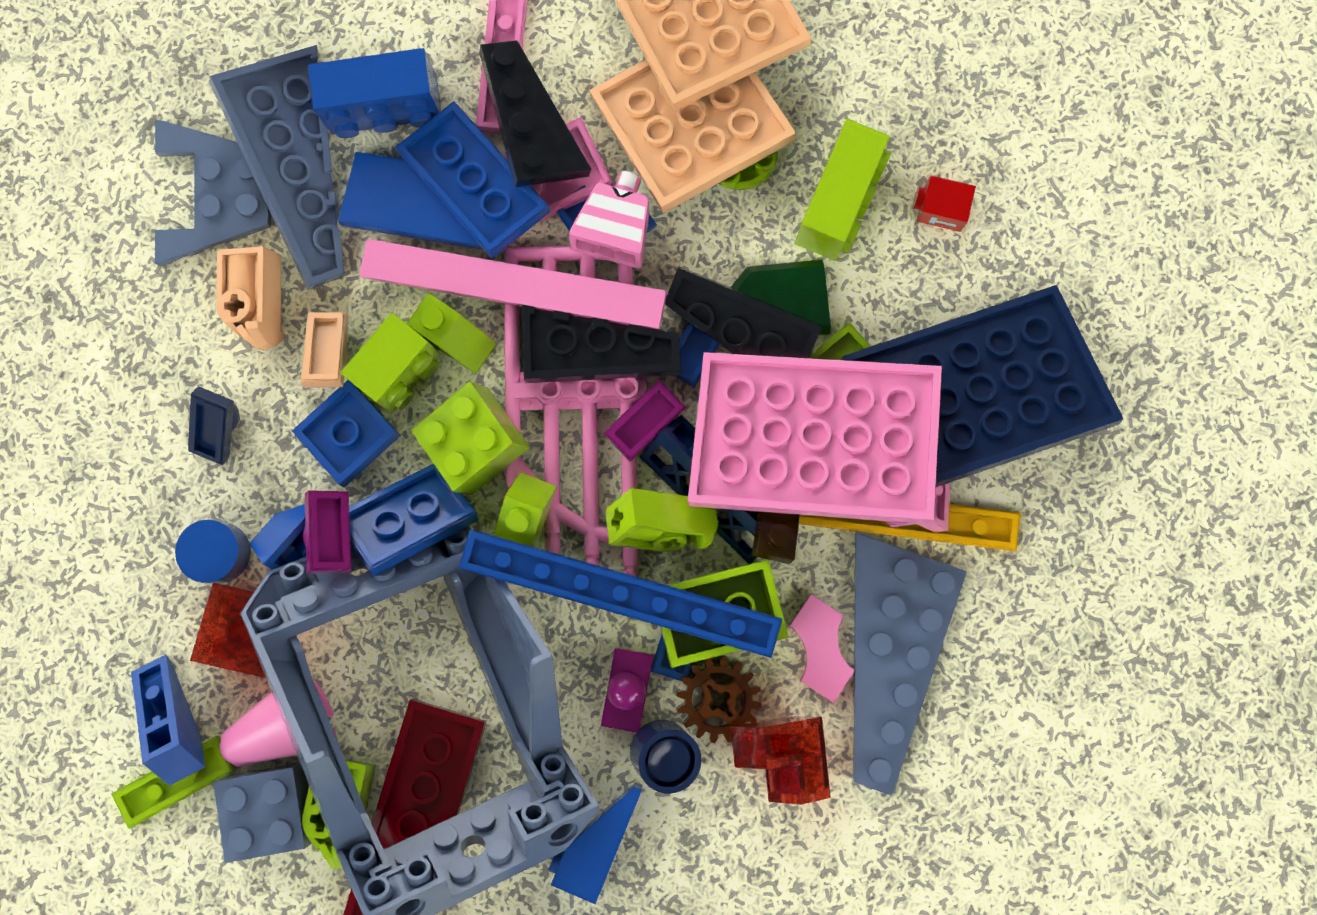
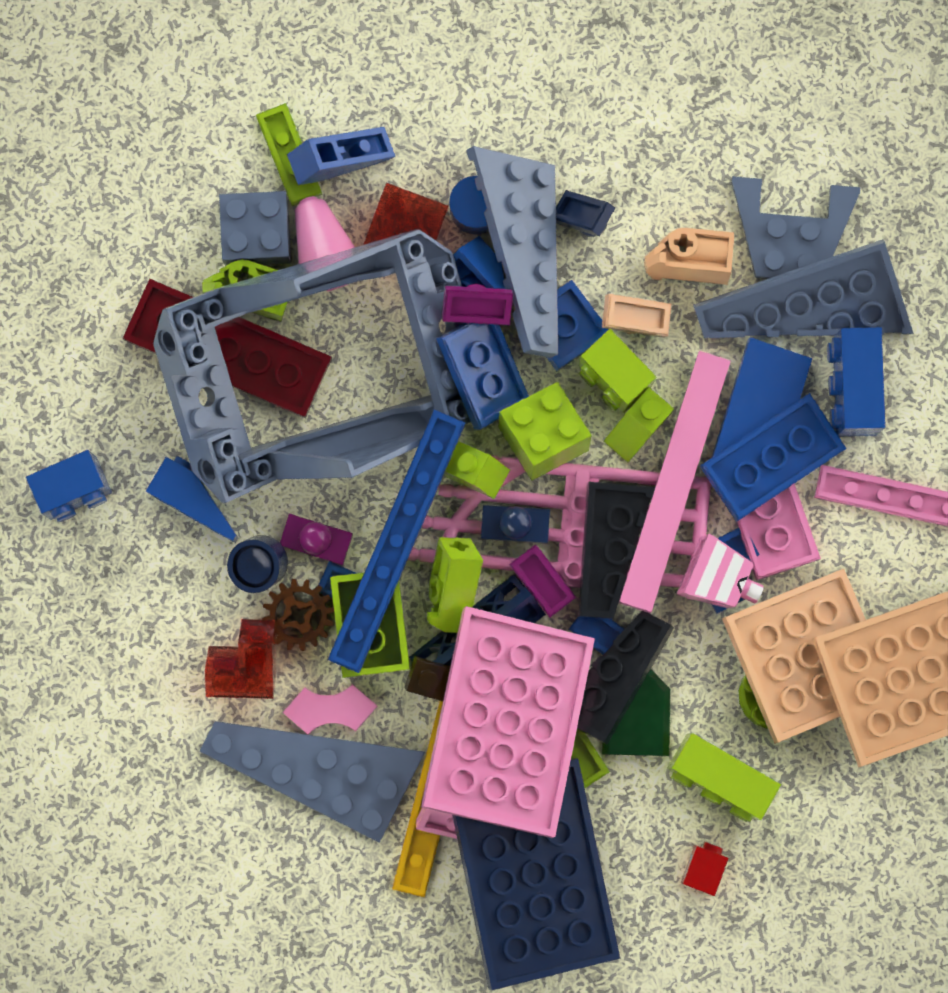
camera: 90 degrees right, 0 degrees up
(244, 489) = (523, 234): none -> sand blue wing
(530, 125) = (815, 512): black wing -> none
(583, 459) = (515, 524): none -> dark blue tile

